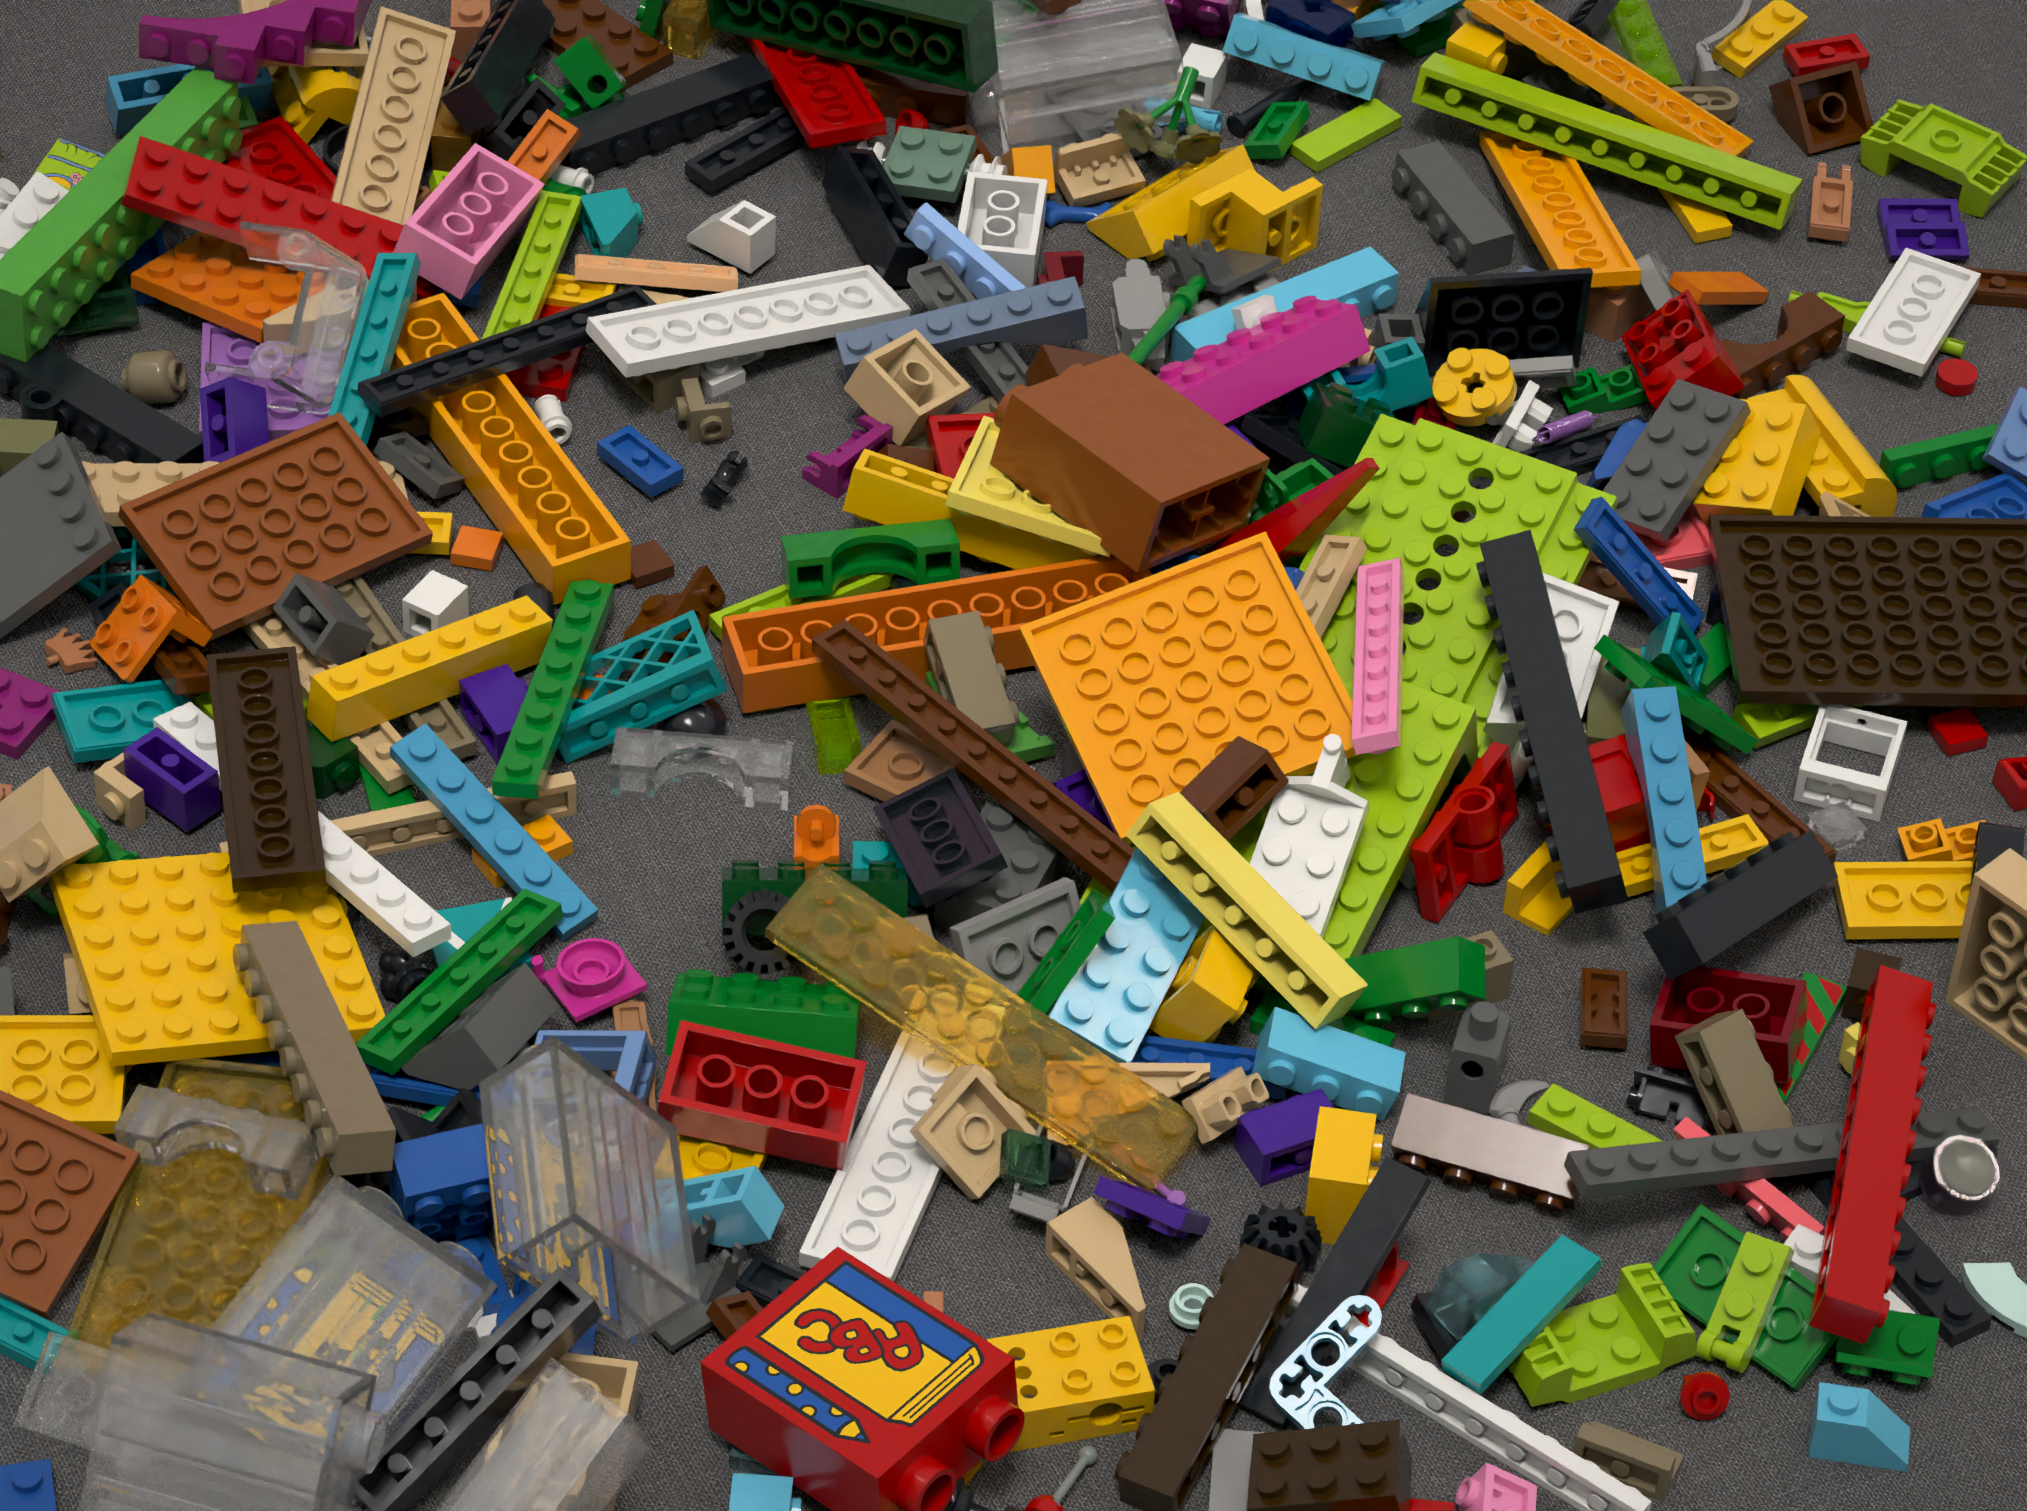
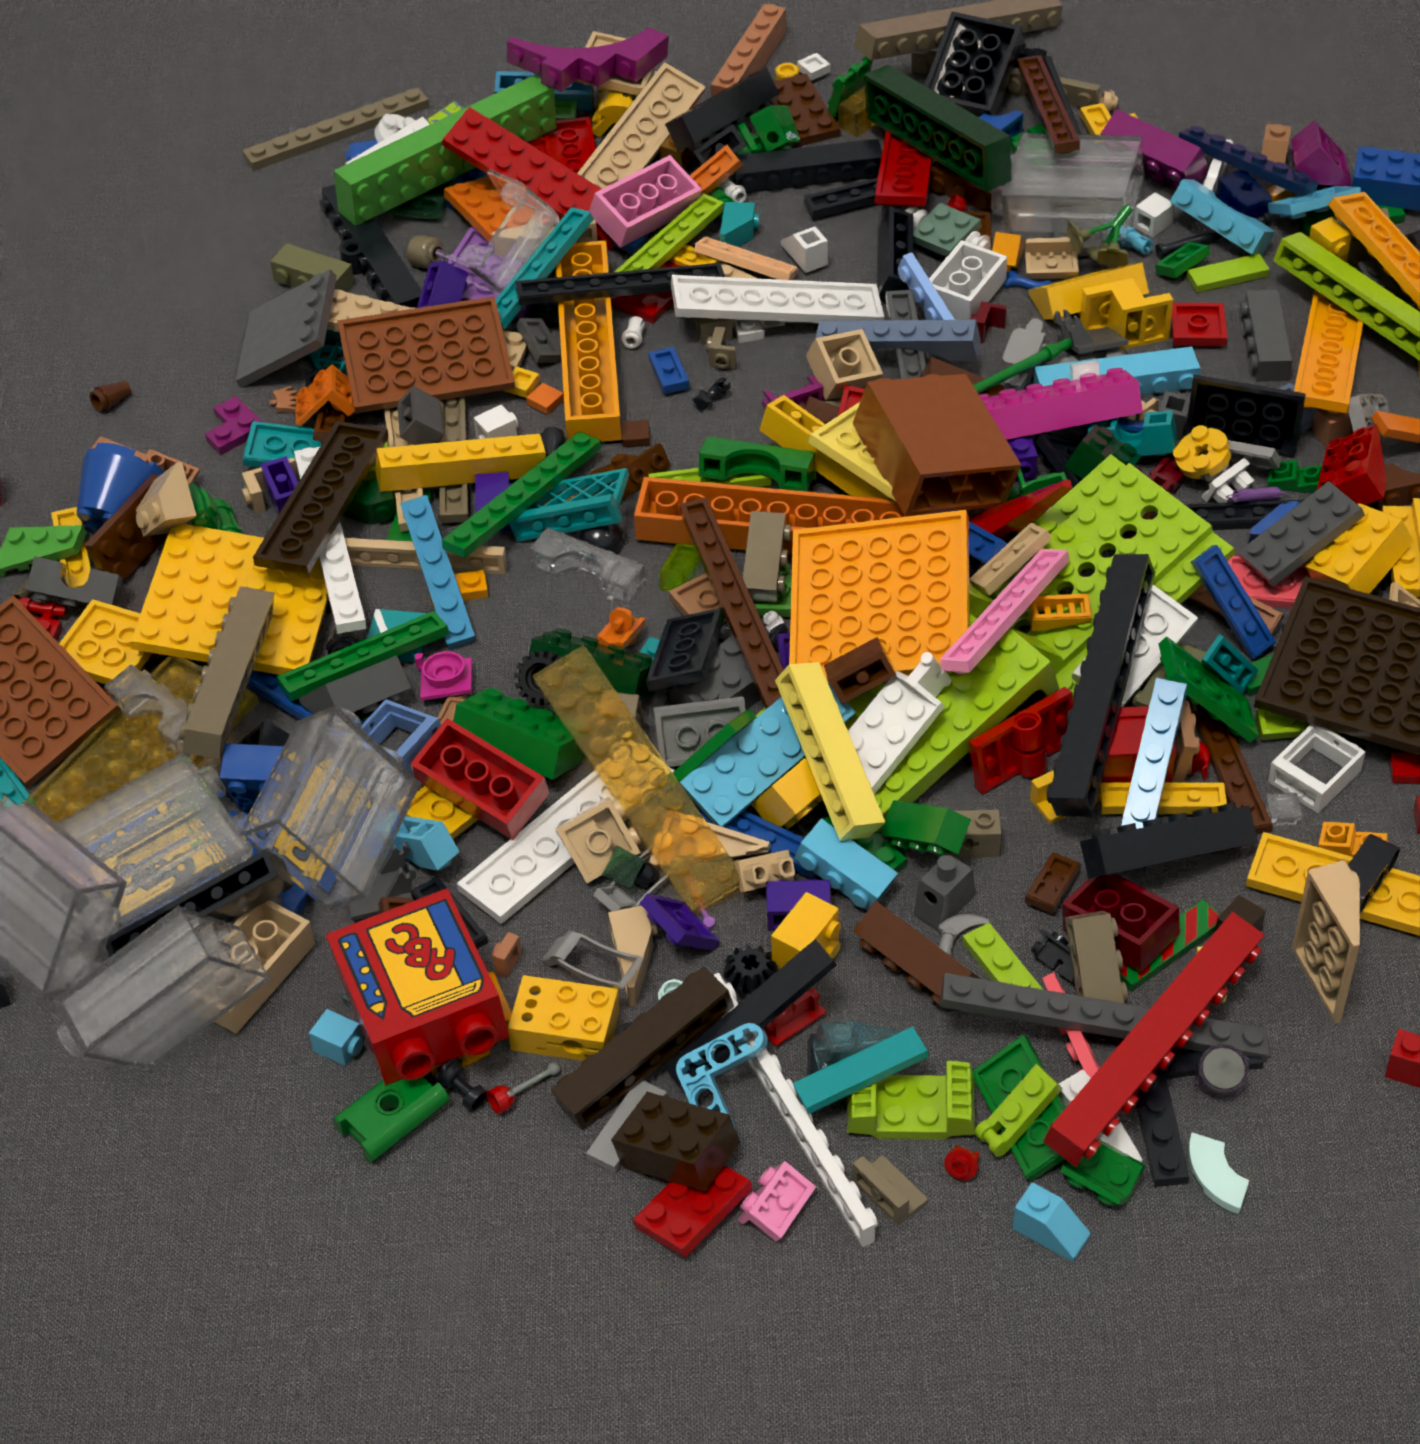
camera: 30 degrees right, 5 degrees up
(1009, 1291) = (566, 943): none -> light grey piece
(1356, 216) = (1198, 324): none -> red plate
(1430, 656) = (1048, 621): none -> light orange slope

